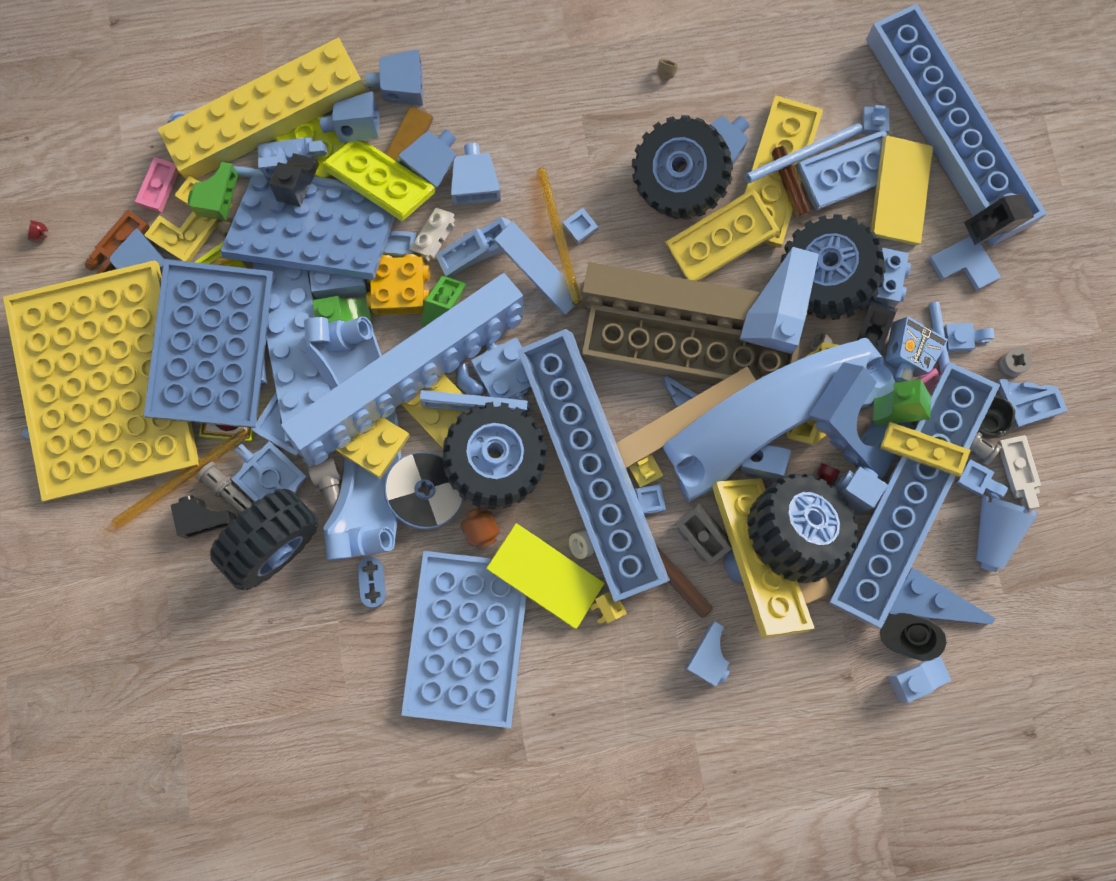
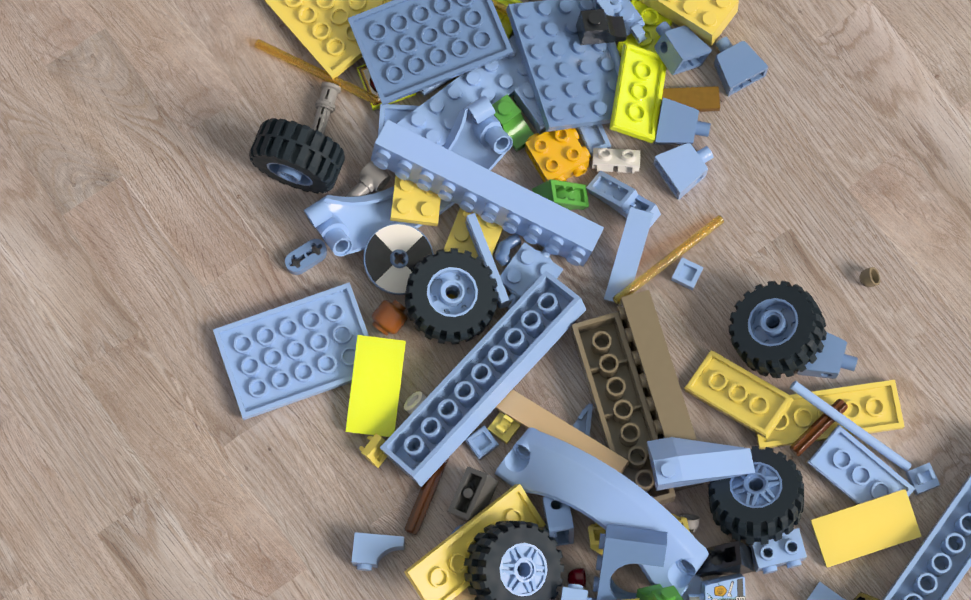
camera: 65 degrees right, 5 degrees down
(194, 518) = (290, 98): black arch -> none
(267, 472) = (353, 134): light blue plate -> none

